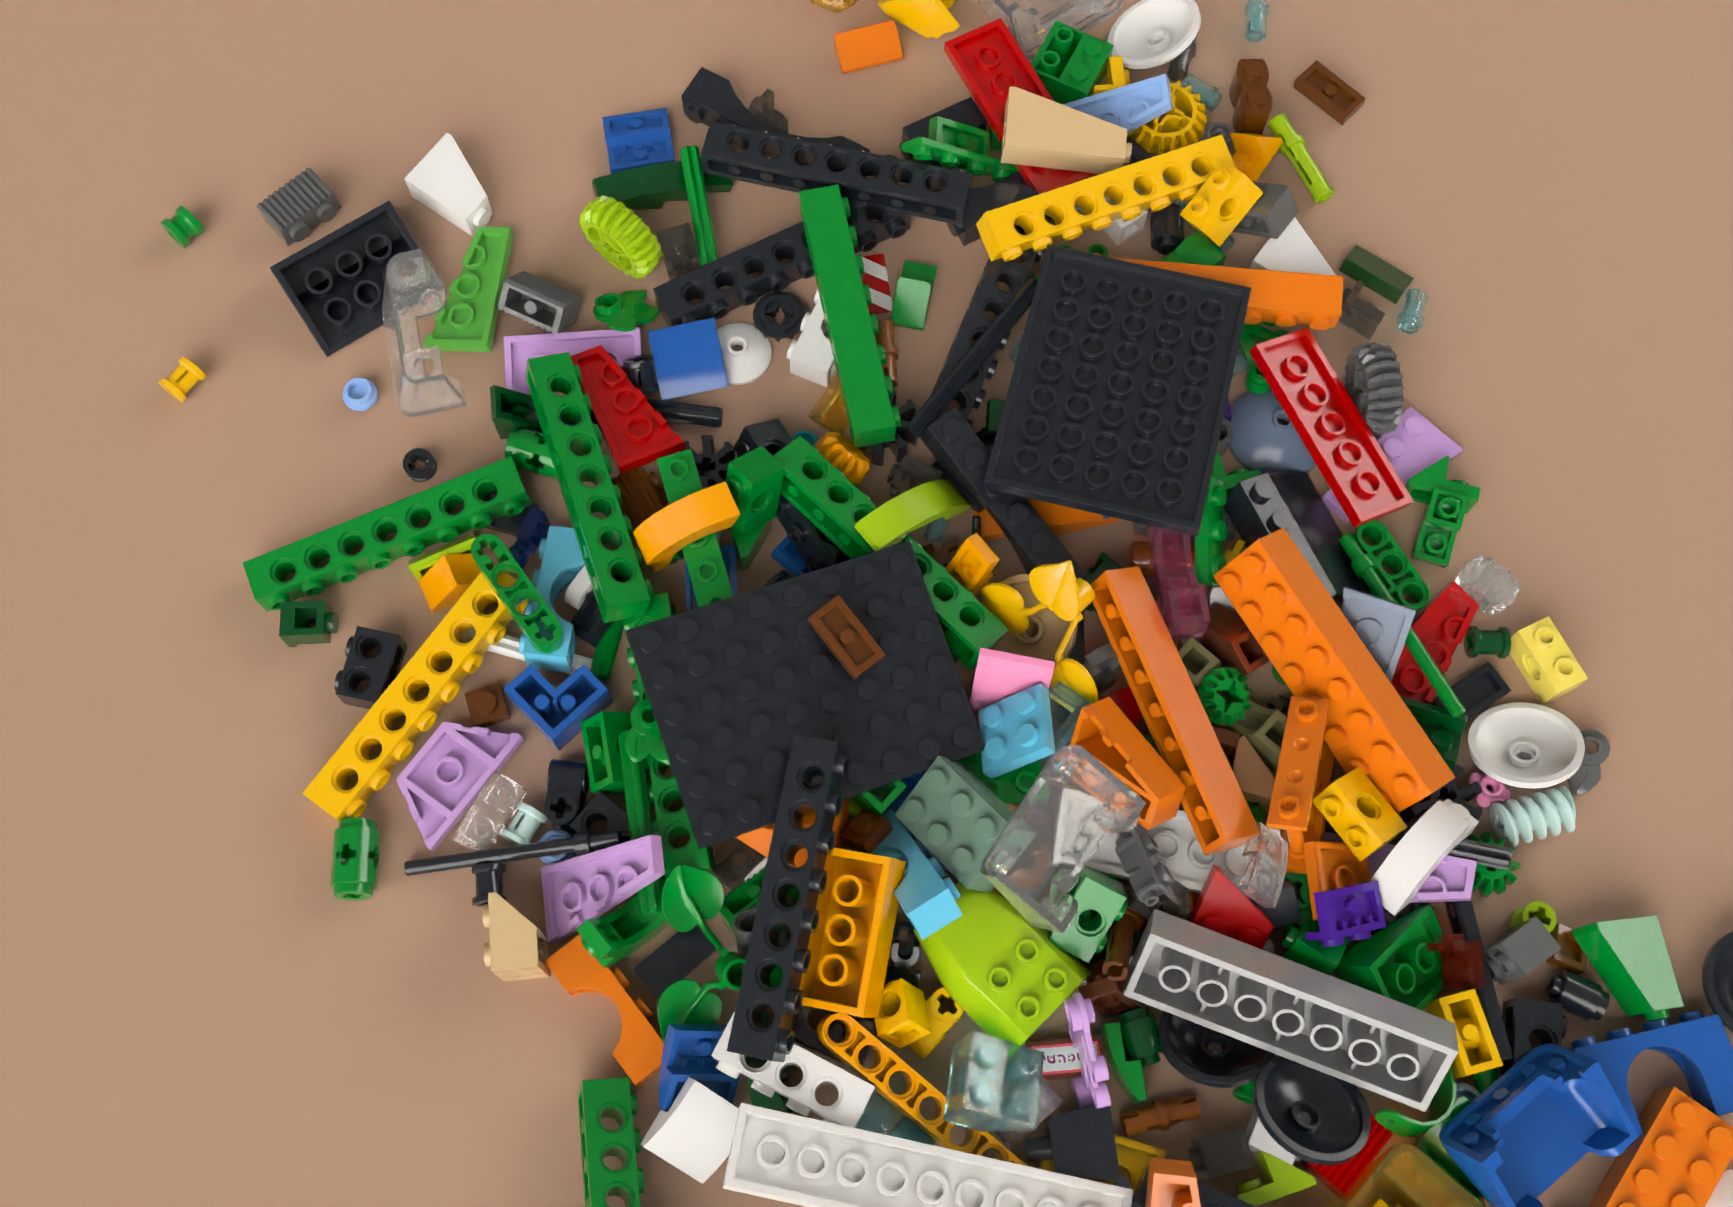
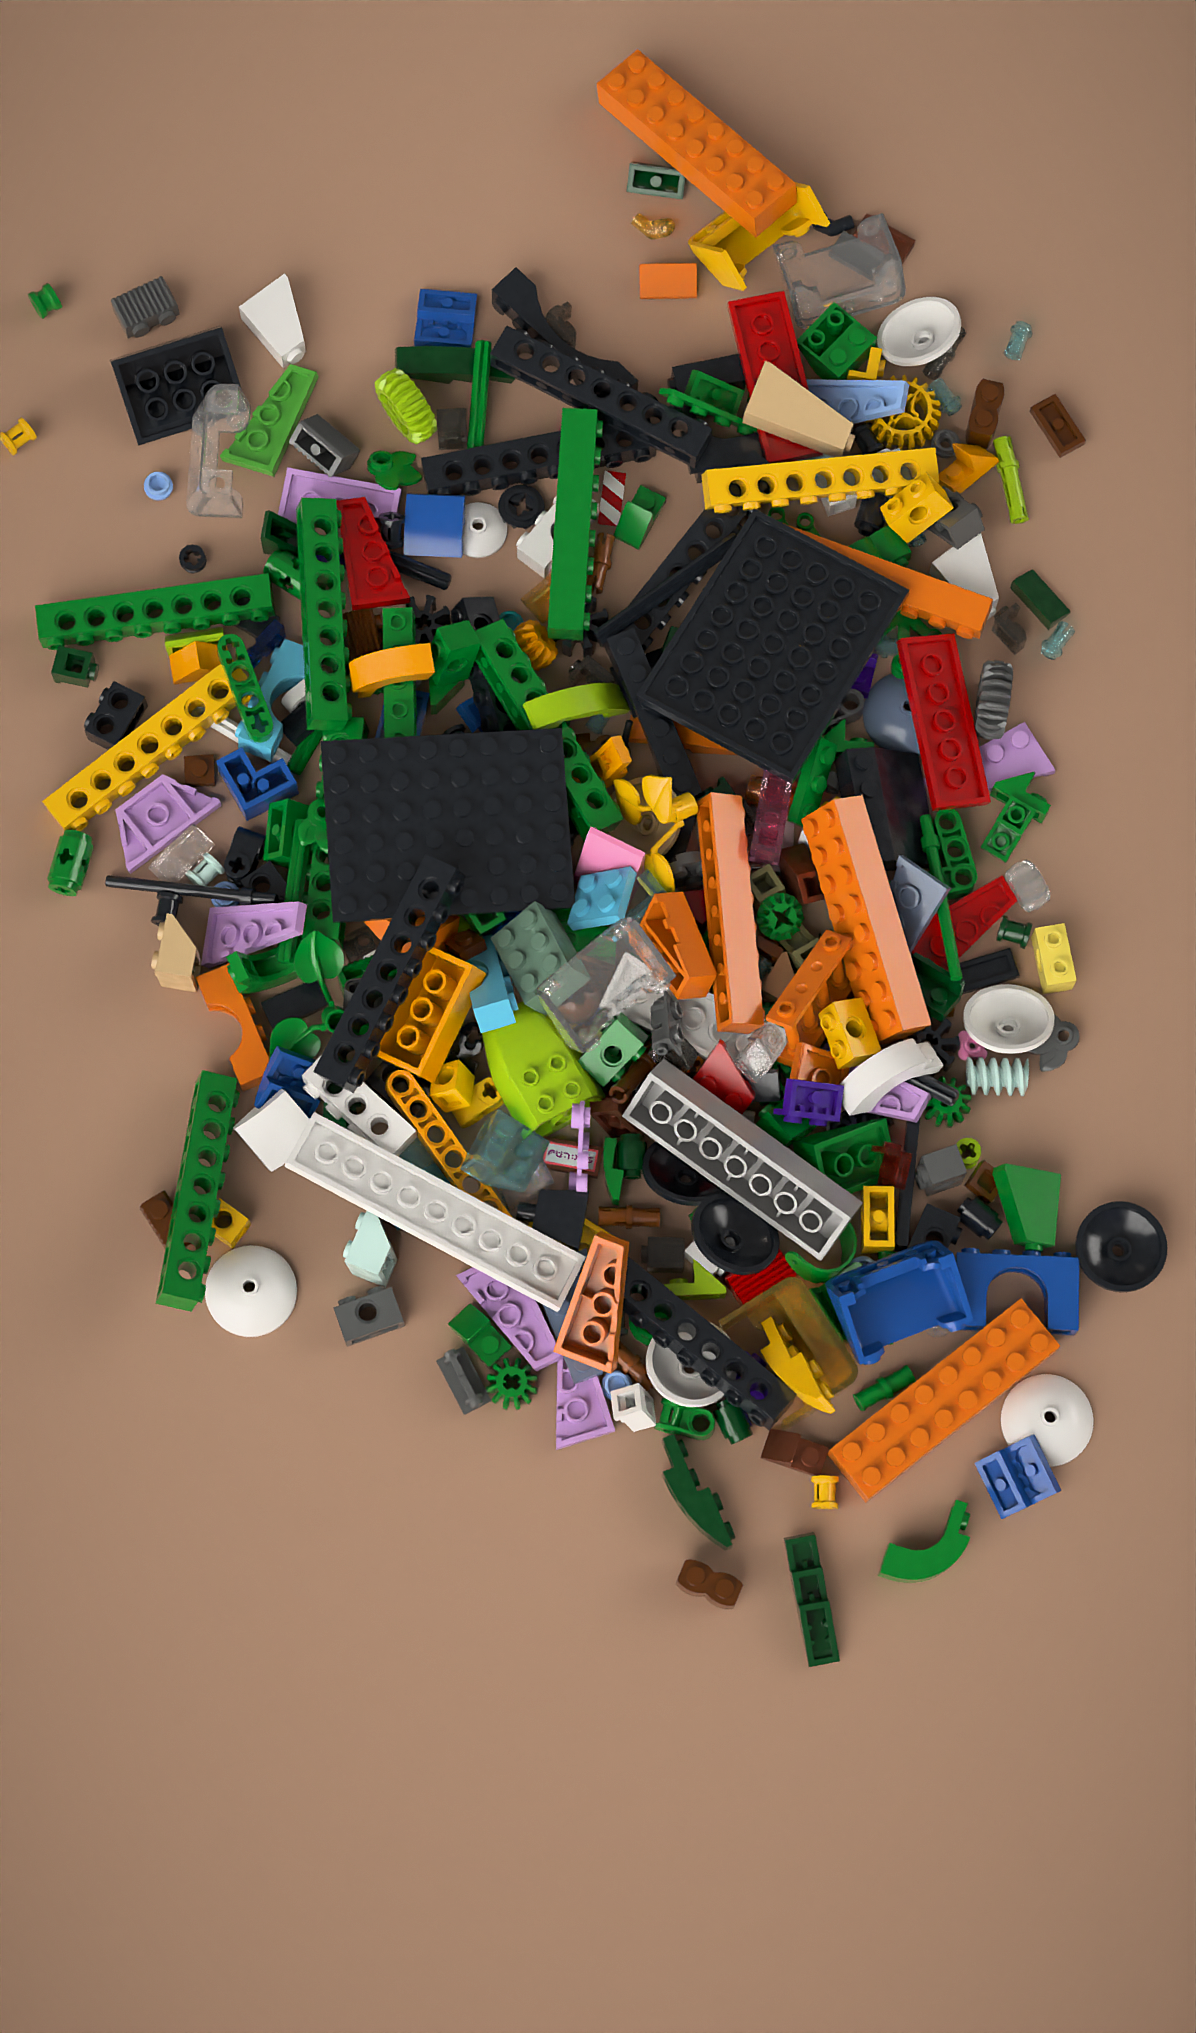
camera: 15 degrees right, 5 degrees up
(846, 637) = (488, 791): reddish brown plate -> none

